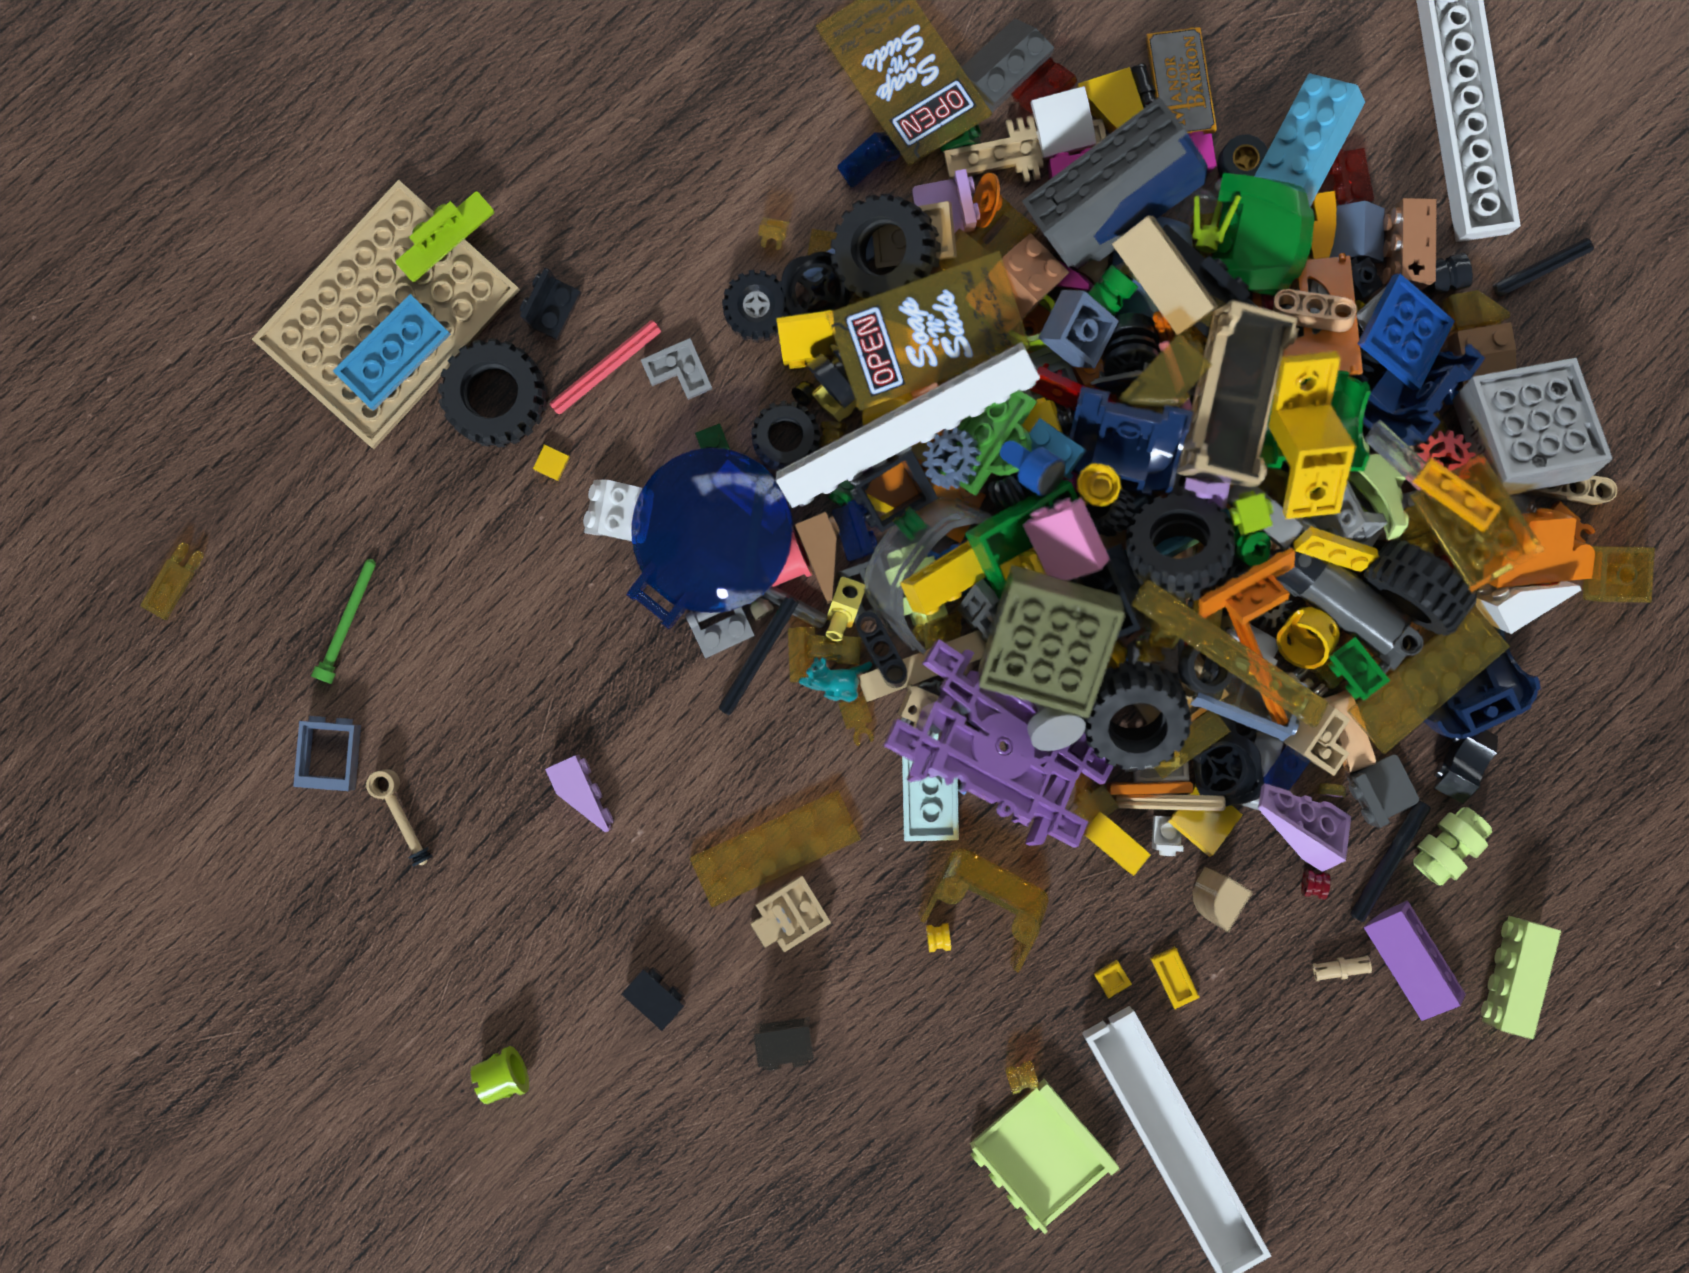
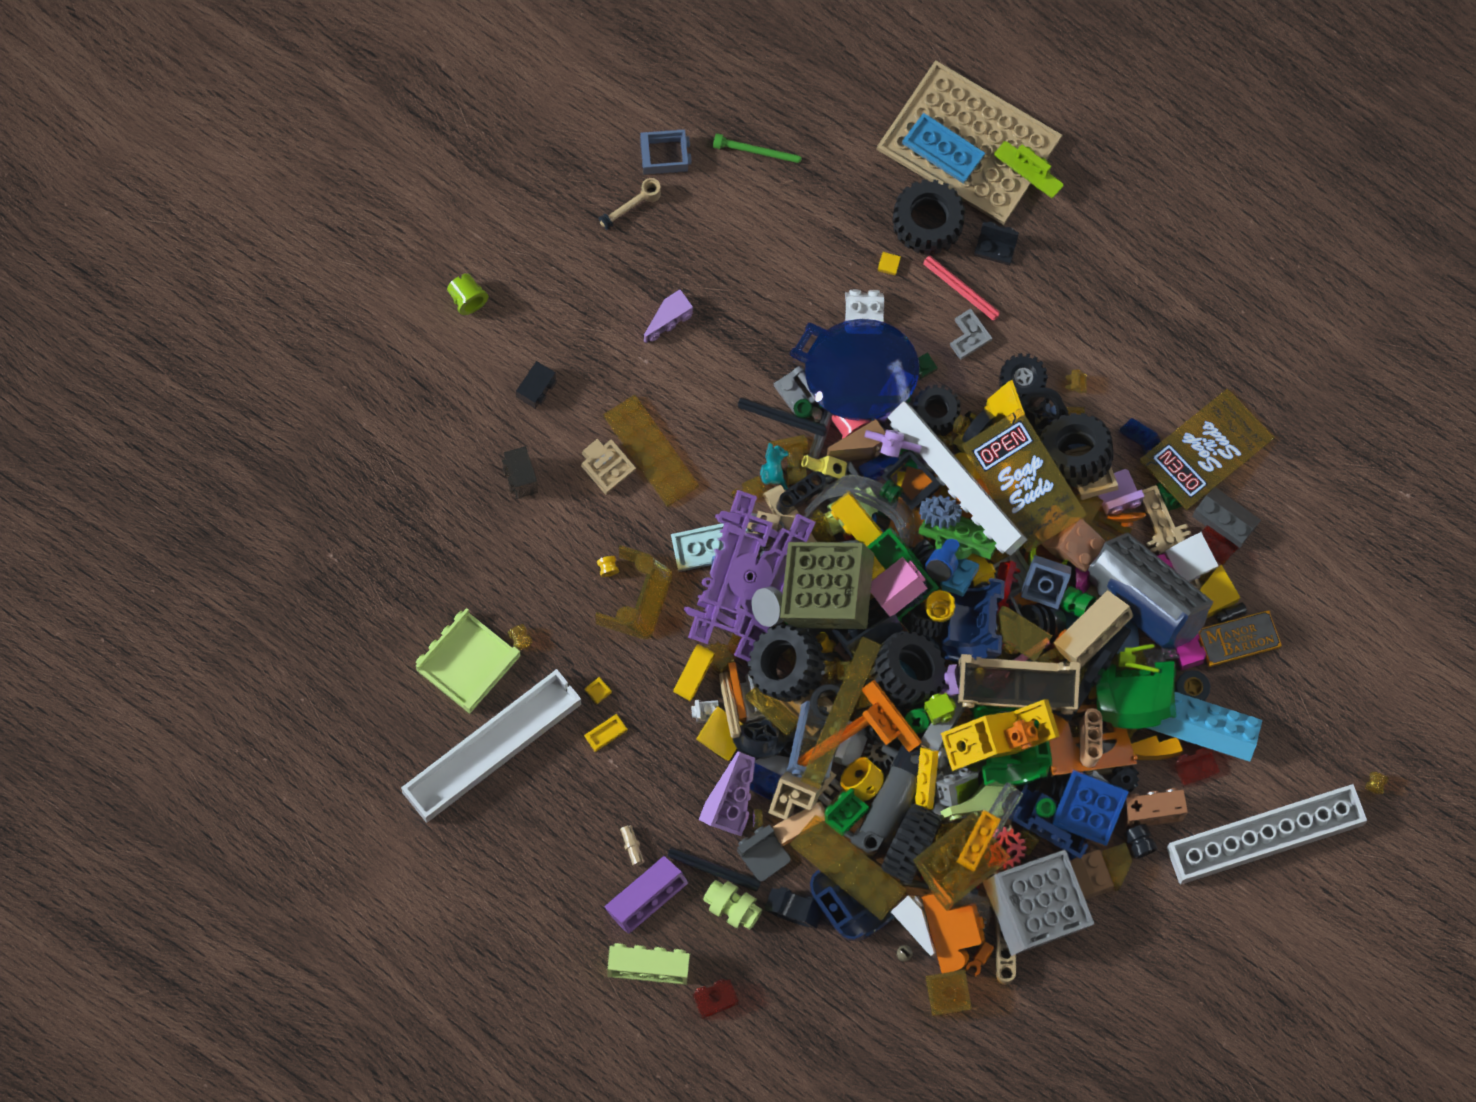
camera: 80 degrees right, 15 degrees down
(171, 582) = (762, 37): clear yellow hinge -> none
(753, 624) = (803, 408): none -> dark green tile
(815, 405) = (961, 424): none -> clear yellow tile
(837, 507) = (892, 442): none -> lavender bar
(1219, 898) = (670, 737): tan brick -> none
(1315, 884) = (688, 817): dark red wheel -> none
(1324, 405) = (1021, 735): none -> orange brick
(1359, 231) = (1158, 775): sand blue slope -> none
(1393, 393) = (1046, 808): none -> green tile
(1543, 267) = (1160, 912): black axle -> none
(1543, 618) = (902, 956): none -> dark tan hinge
(1584, 902) = (706, 1006): none -> clear red brick

